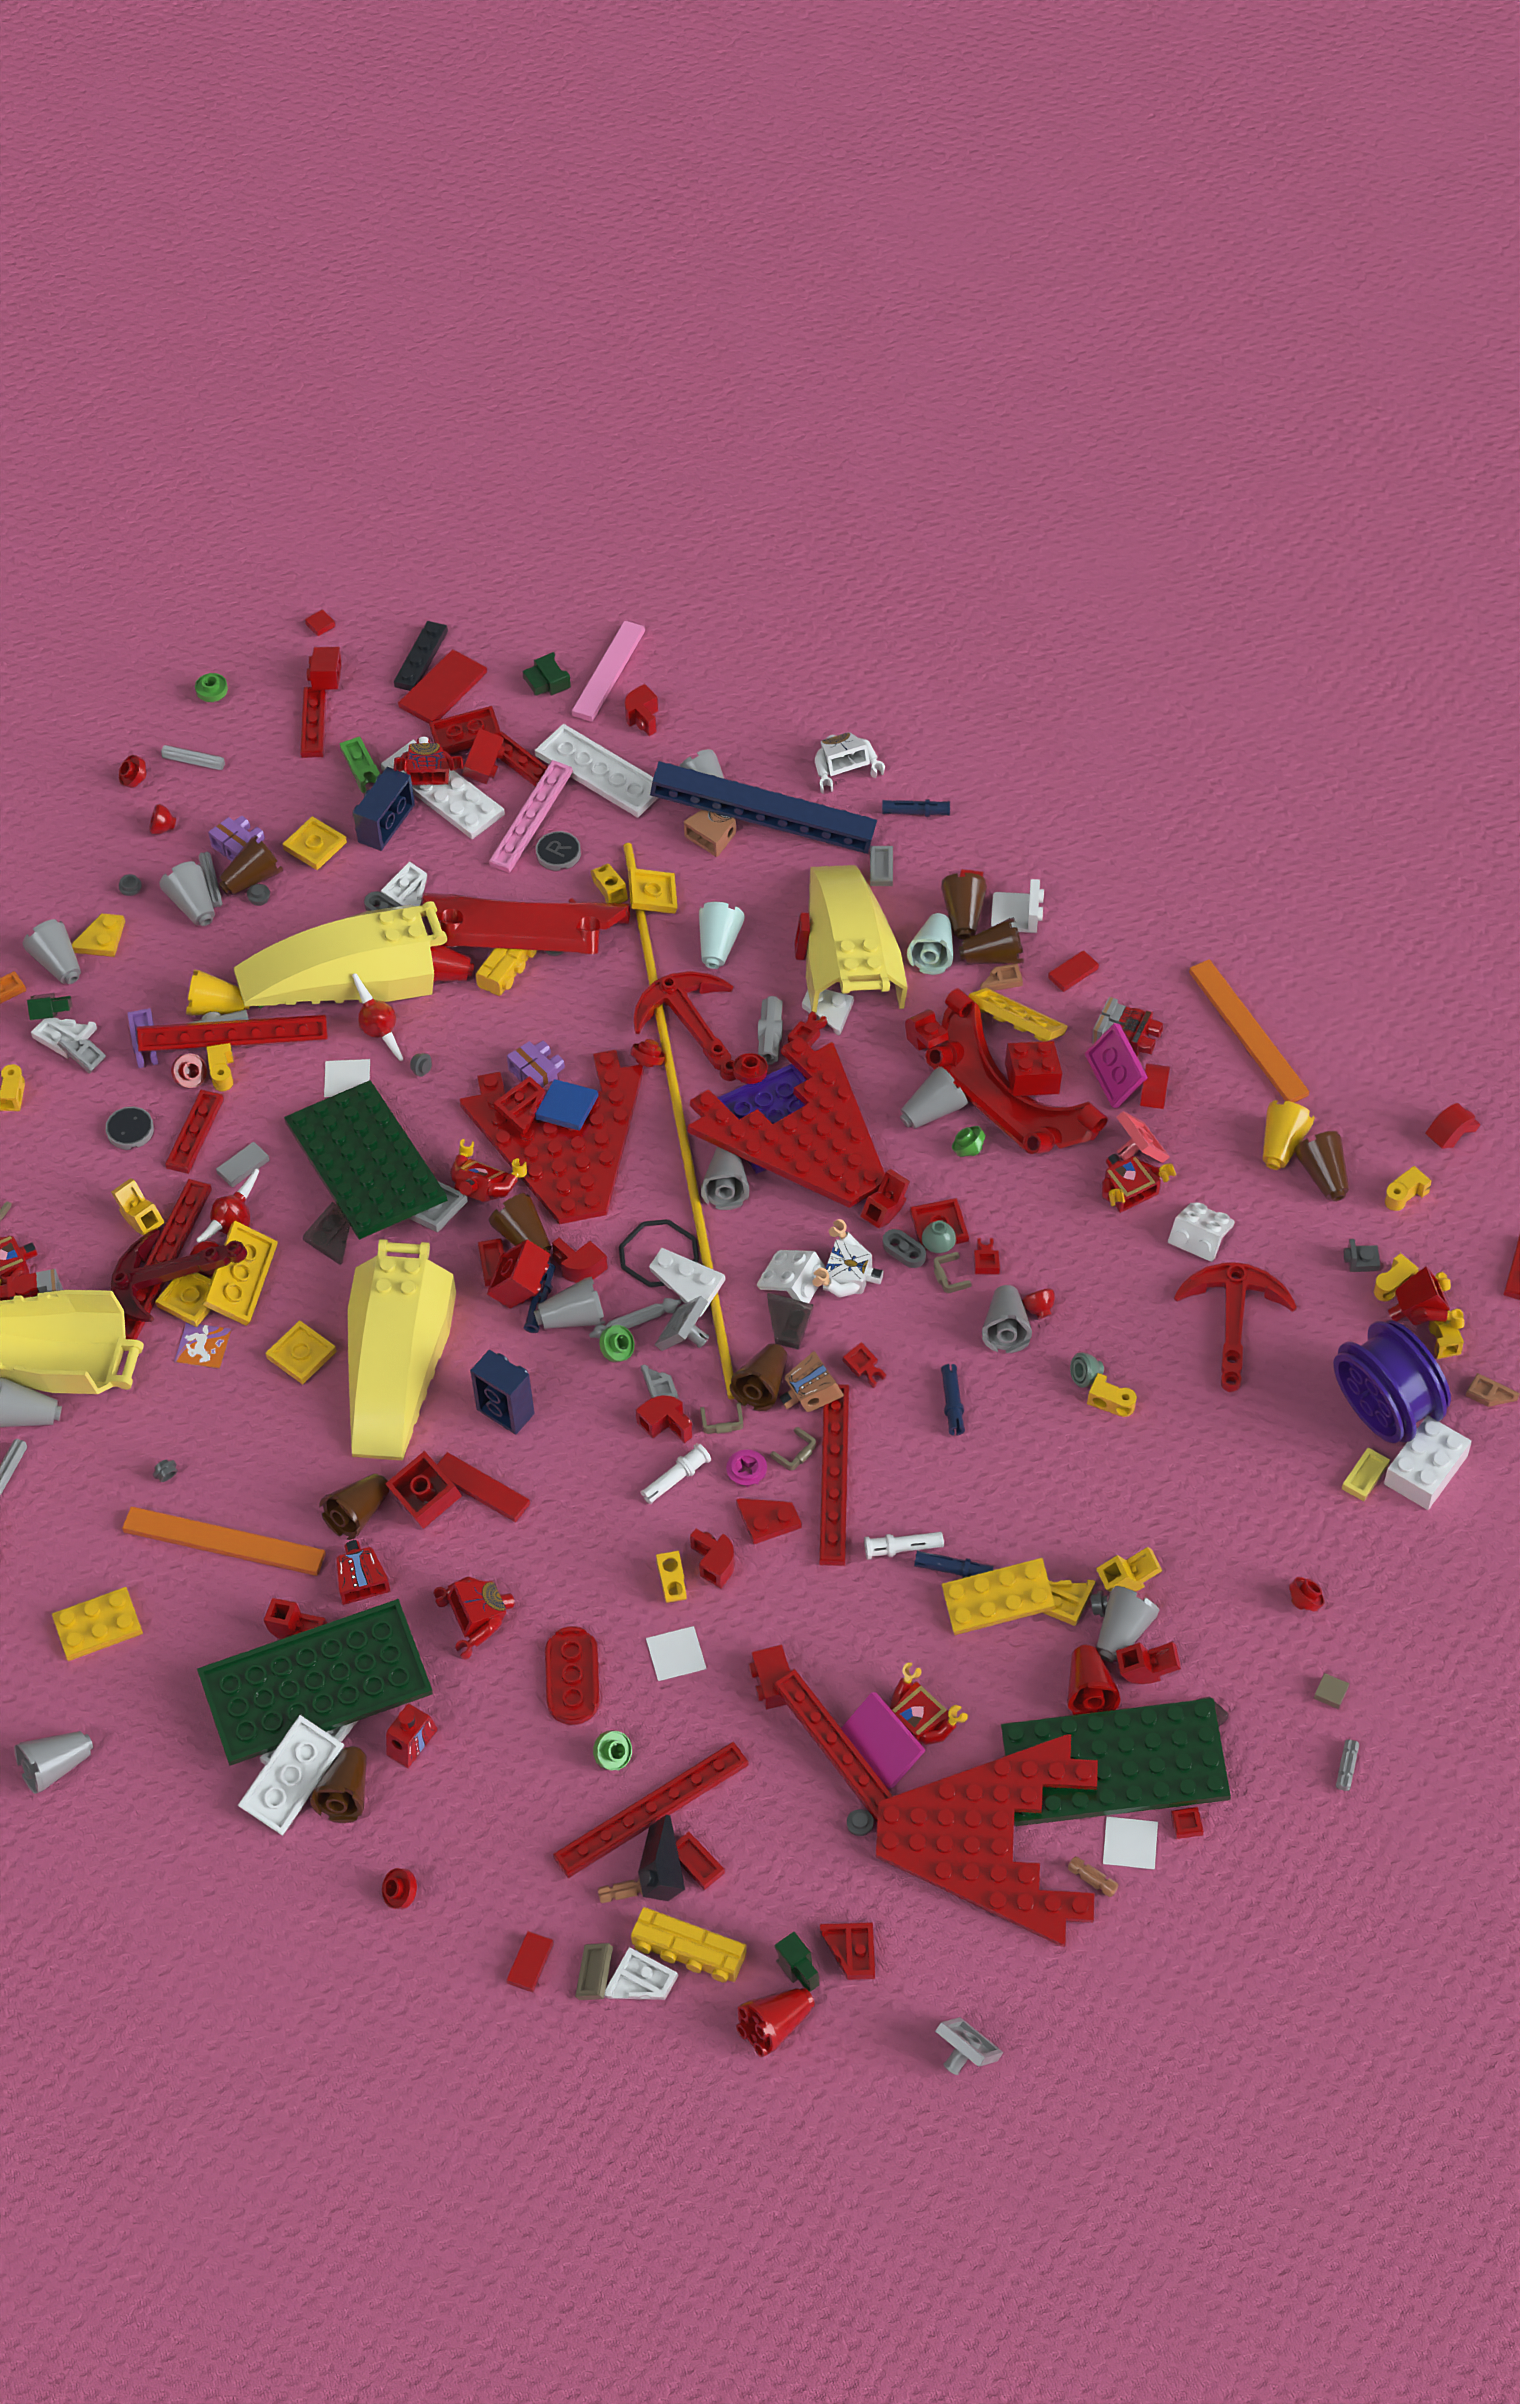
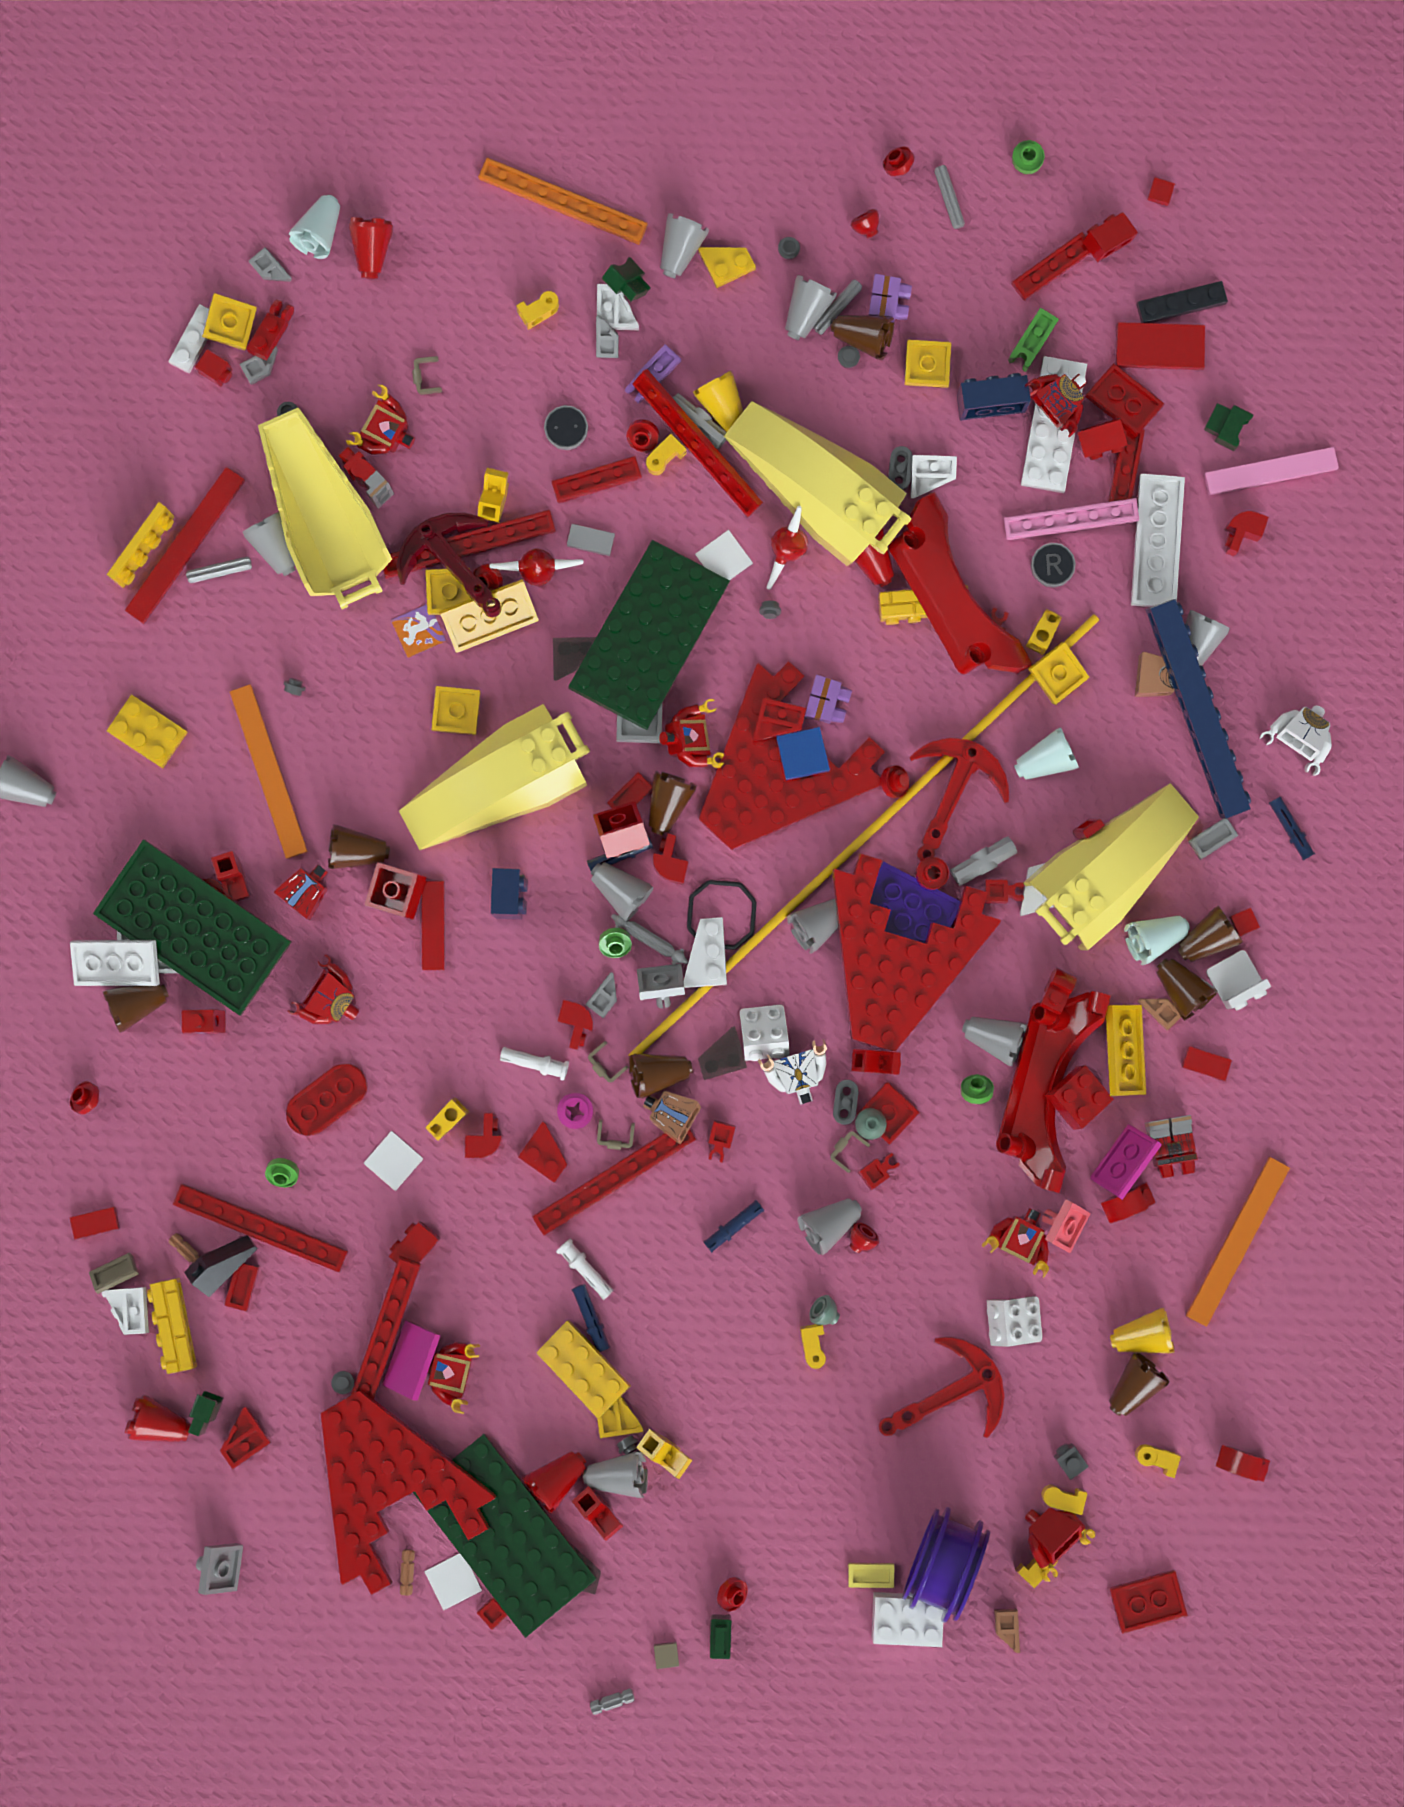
camera: 50 degrees right, 30 degrees up
(1343, 1628) = (720, 1637): none -> dark green piece

